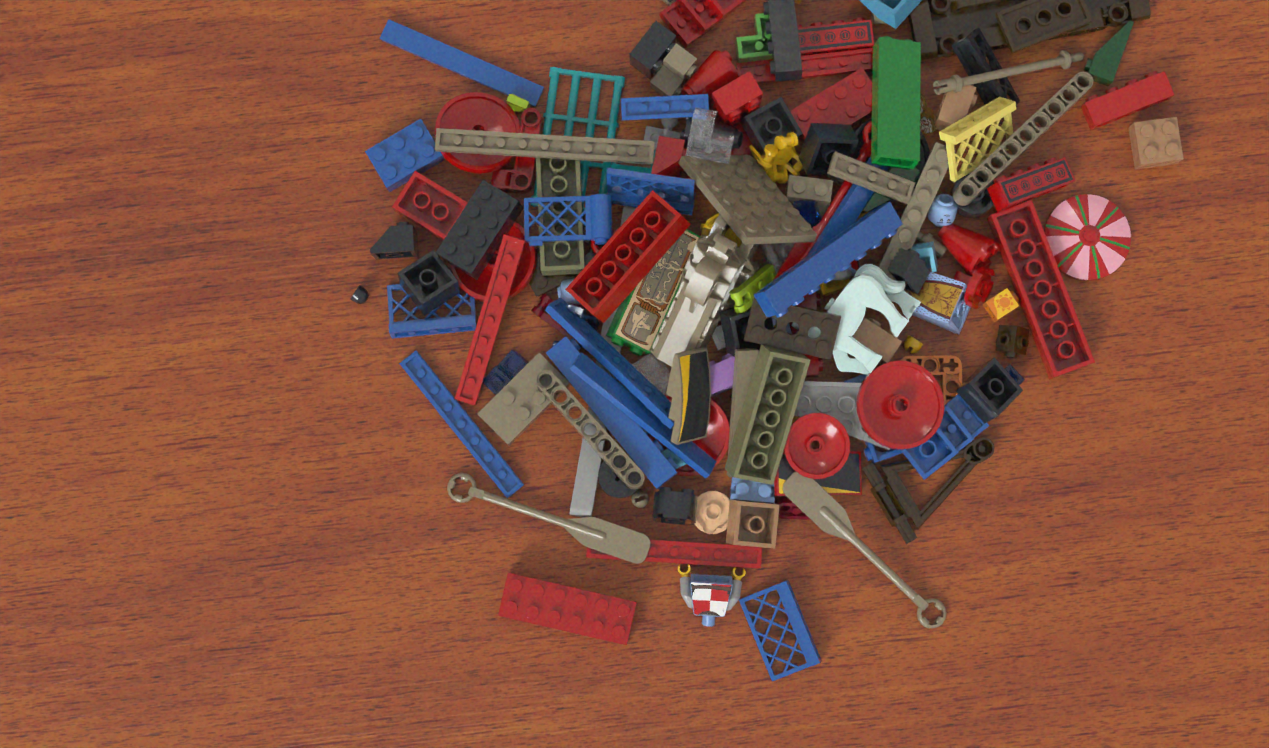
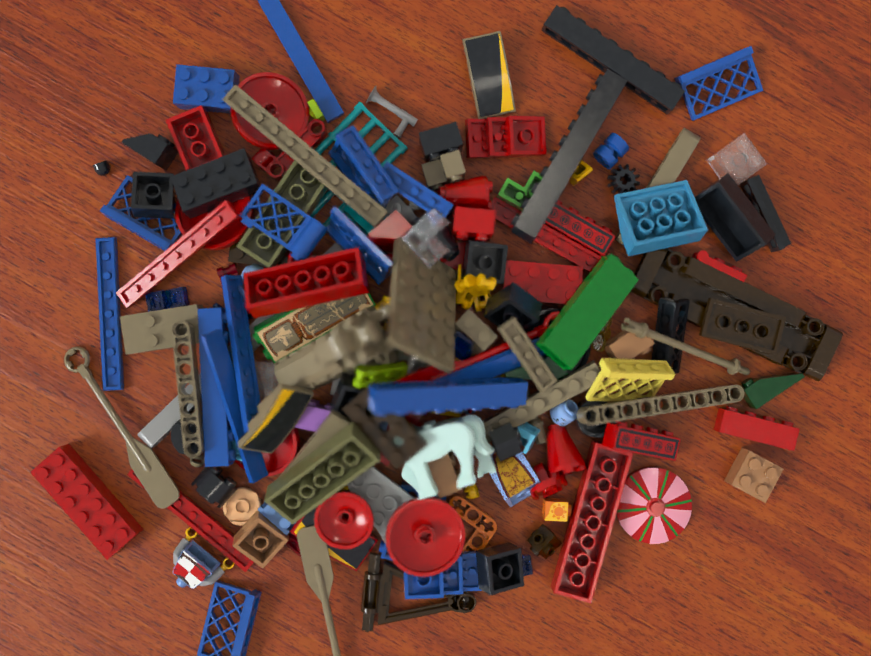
camera: 30 degrees right, 5 degrees up
(582, 109) = (361, 166): none -> blue fence
(604, 51) = (405, 116): none -> light grey piece

